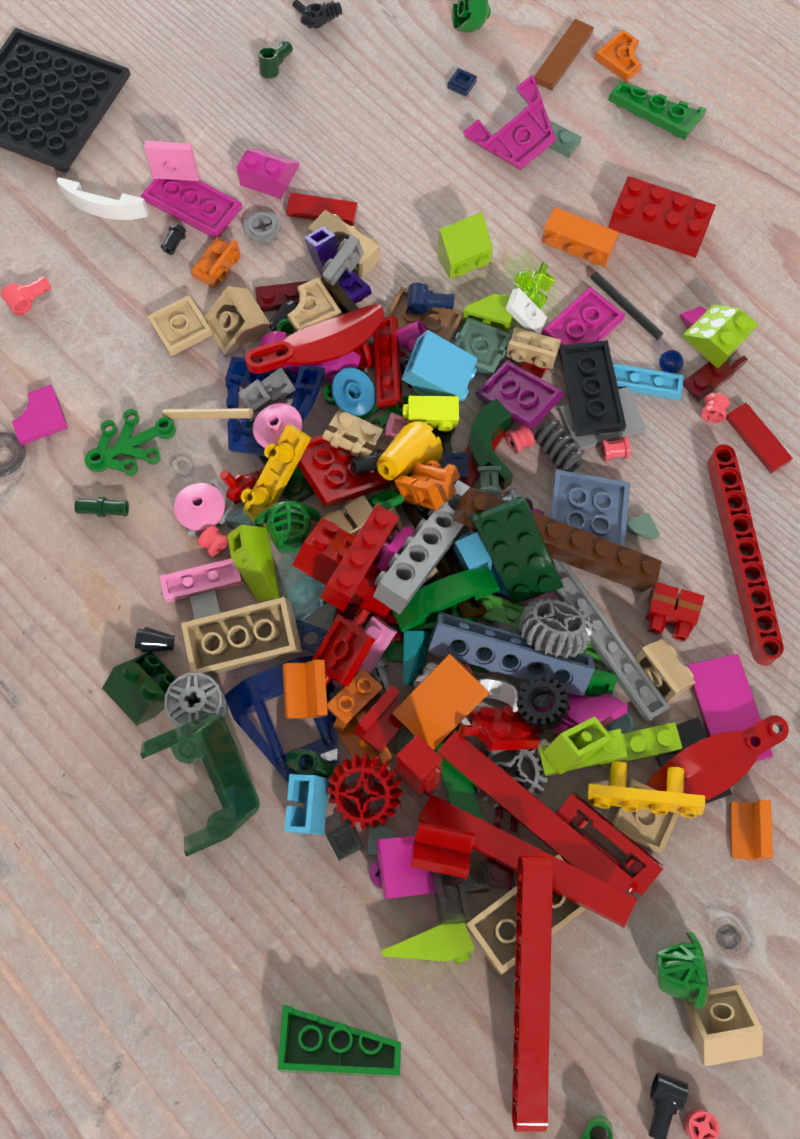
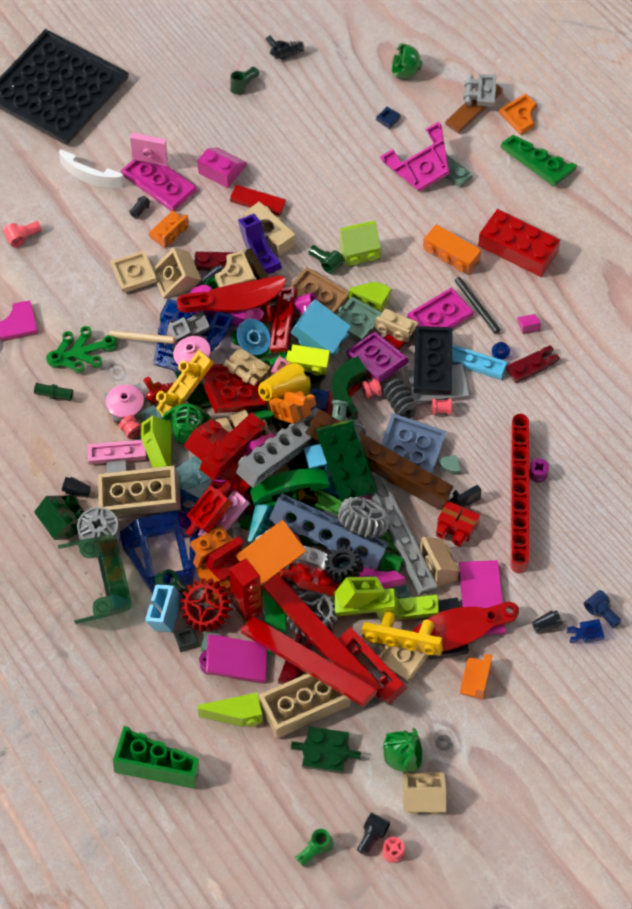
camera: 10 degrees right, 10 degrees down
(270, 222) = (215, 203): light grey gear -> none
(305, 690) = (177, 531): orange panel -> none
(348, 256) = (267, 238): light grey plate -> none
(365, 463) = (250, 388): black pin -> none
(422, 299) = (319, 277): dark blue pin -> none
(429, 274) = (329, 260): none -> dark green pin
(442, 849) = (252, 645): red panel -> none
(452, 890) = (256, 671): clear smoke plate -> none
(526, 311) = (396, 298): white plate -> none
(532, 994) = (293, 742): red beam -> none
(533, 282) = (401, 276): clear neon green hips -> none
(576, 31) = (486, 90): none -> light grey plate
(578, 982) = (325, 750): none -> dark green plate
(667, 576) = (467, 497): none -> black slope
(715, 408) = (524, 388): coral wheel -> none
(720, 332) = (539, 335): lime slope -> none
(758, 438) = (554, 415): red tile -> none
(767, 512) = (538, 475): none -> magenta wheel

